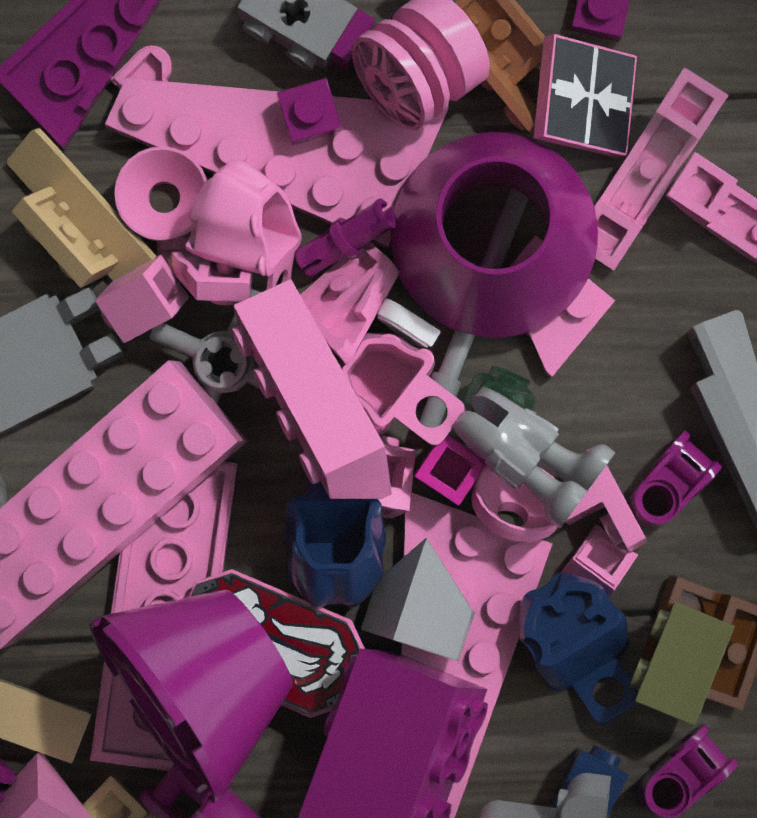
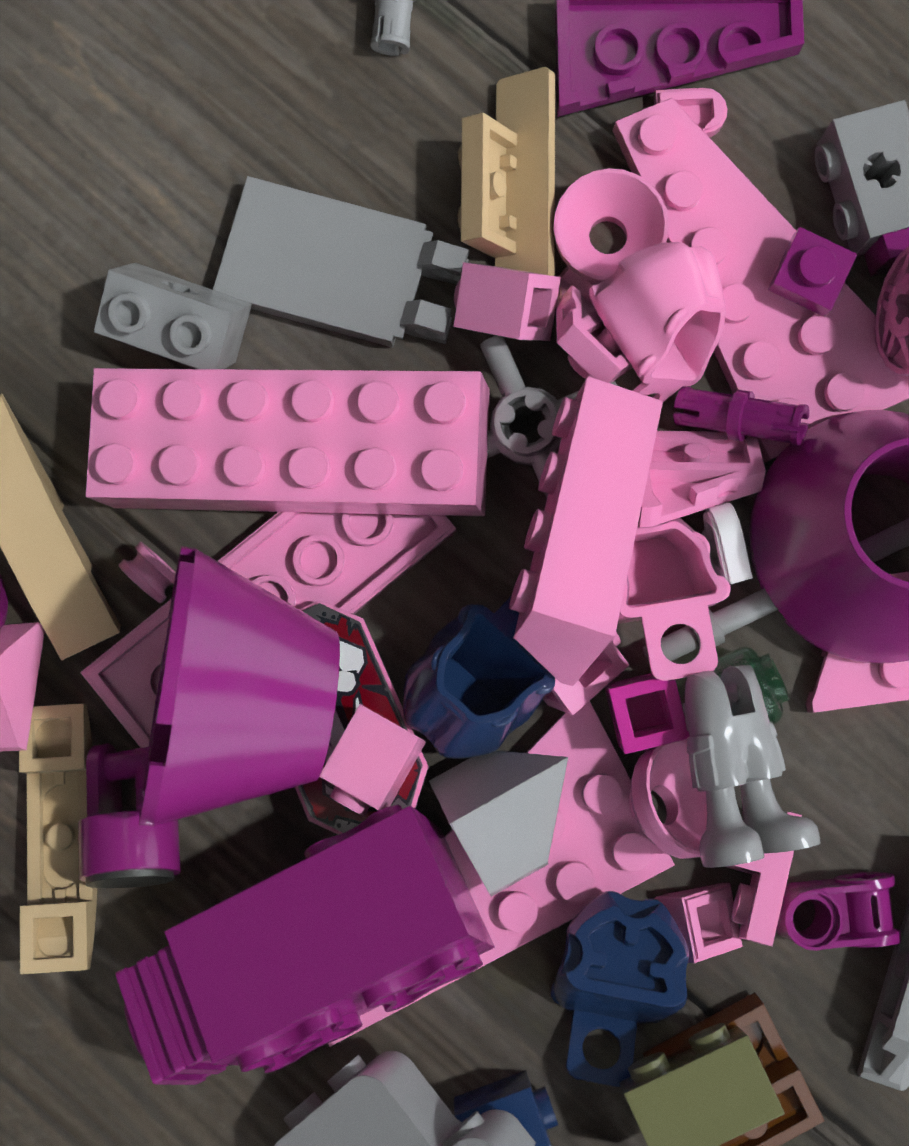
camera: 40 degrees right, 0 degrees up
(76, 660) = (149, 572): none -> bright pink bush
(314, 646) = (370, 762): none -> bright pink brick

